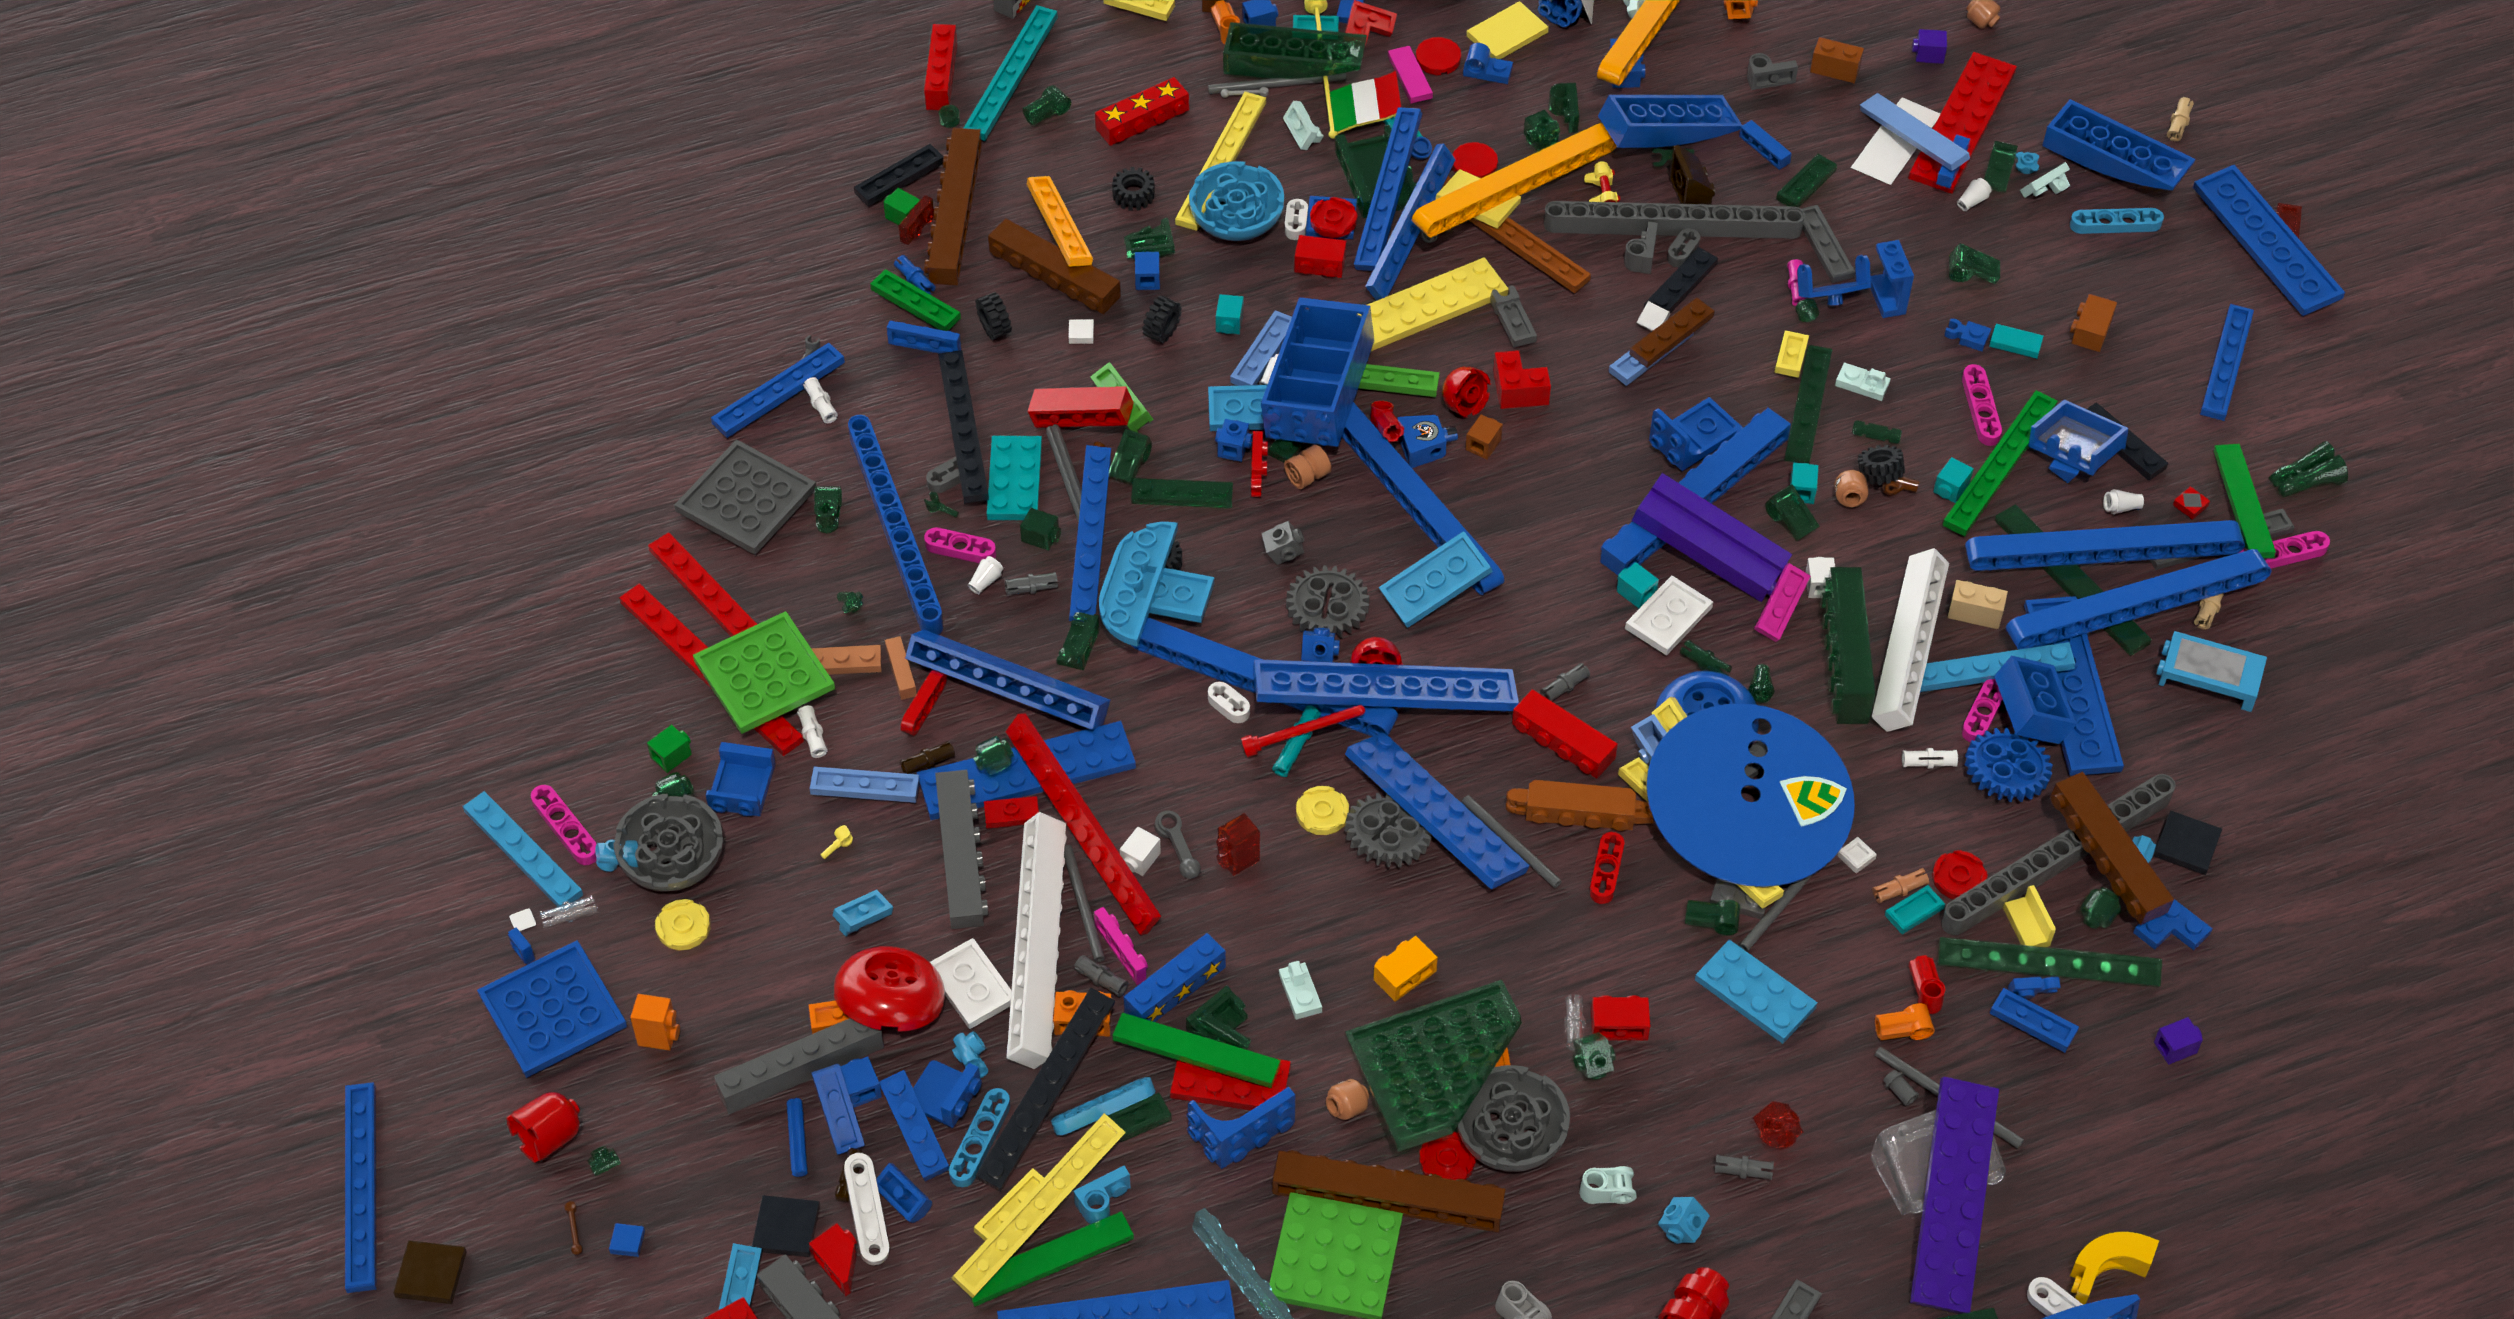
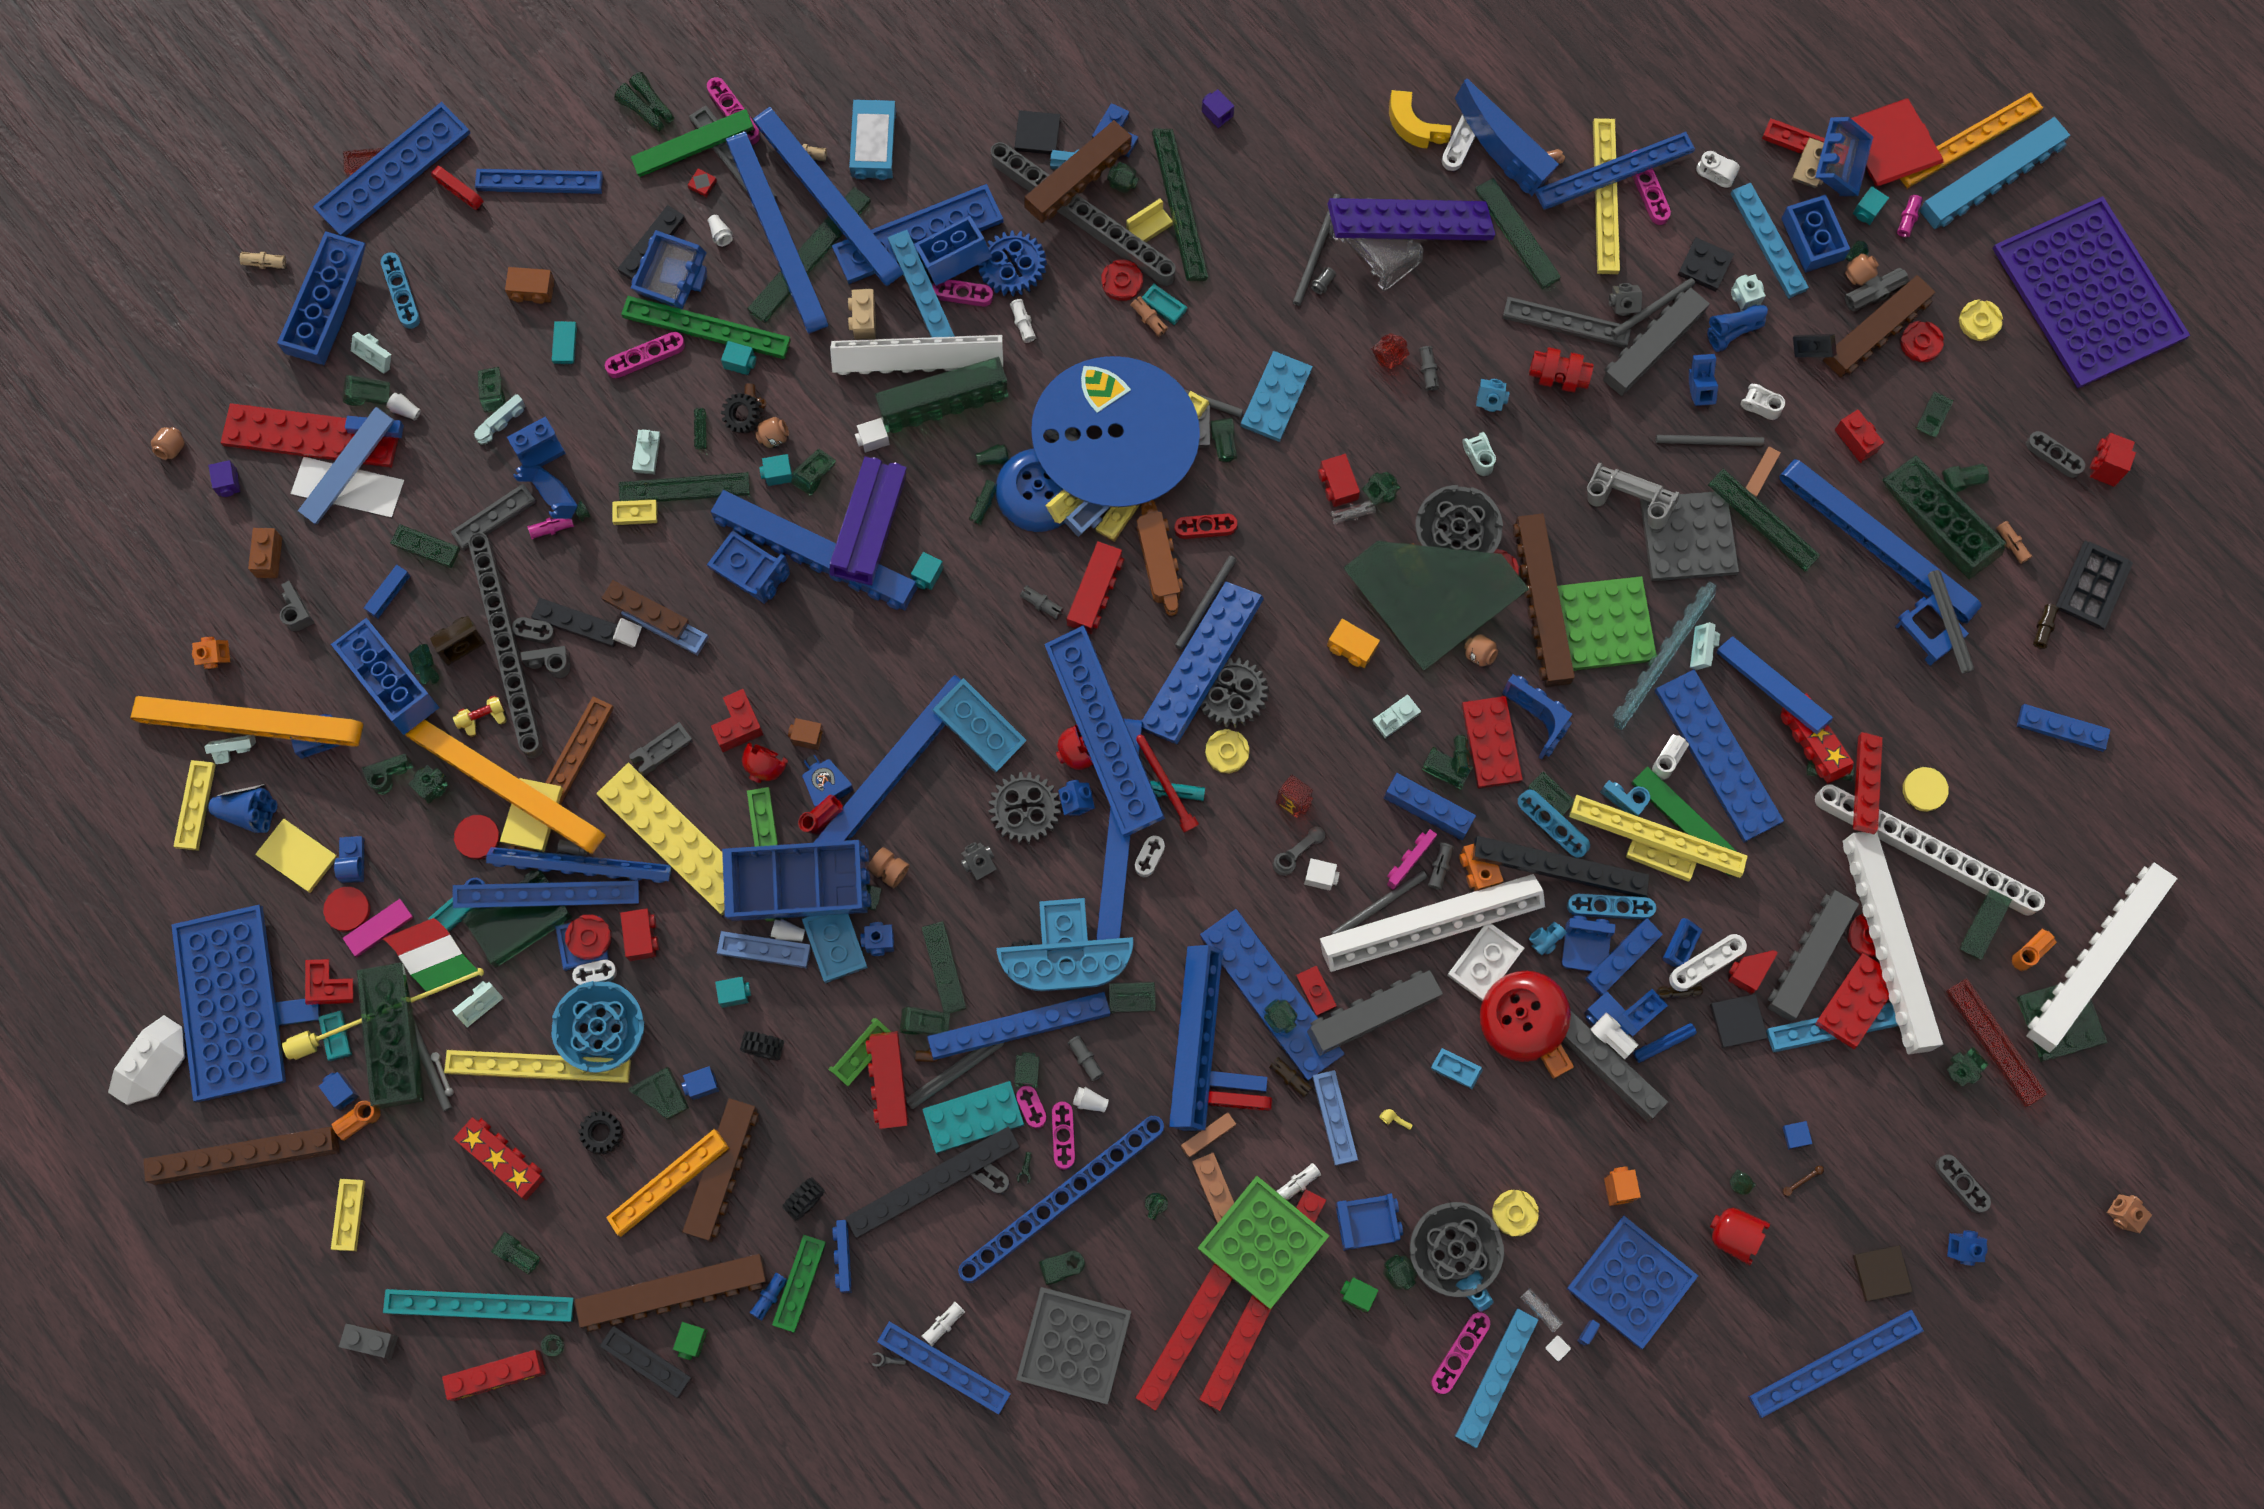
camera: 110 degrees left, 20 degrees up
(829, 1054) = (1610, 1032): none -> white piece
(916, 220) = (691, 1317): clear red plate -> none
(944, 710) = (1238, 1082): none -> blue piece
(1001, 526) = (1026, 1110): none -> dark pink beam
(1081, 331) = (787, 1119): white tile -> none
(1083, 824) = (1315, 926): red plate -> none
(1136, 1262) = (1670, 756): none -> white piece
(1196, 1050) = (1485, 769): green tile -> none
(1259, 467) = (898, 910): red plate -> none
(1669, 615) = (948, 540): white plate -> none
(1782, 602) = (911, 456): dark pink plate -> none
(1857, 855) = (1130, 350): white tile -> none
(1911, 1022) = (1268, 284): orange piece -> none
(1927, 983) = (1228, 280): red piece -> none
(1935, 264) = (499, 419): none -> light aqua hinge
(1971, 335) = (567, 378): blue plate -> none
(2027, 162) = (343, 369): dark azure plate -> none
(2032, 986) = (1208, 212): blue plate -> none
(2034, 1020) = (1234, 204): blue plate -> none
(2232, 287) = (457, 187): none -> red beam

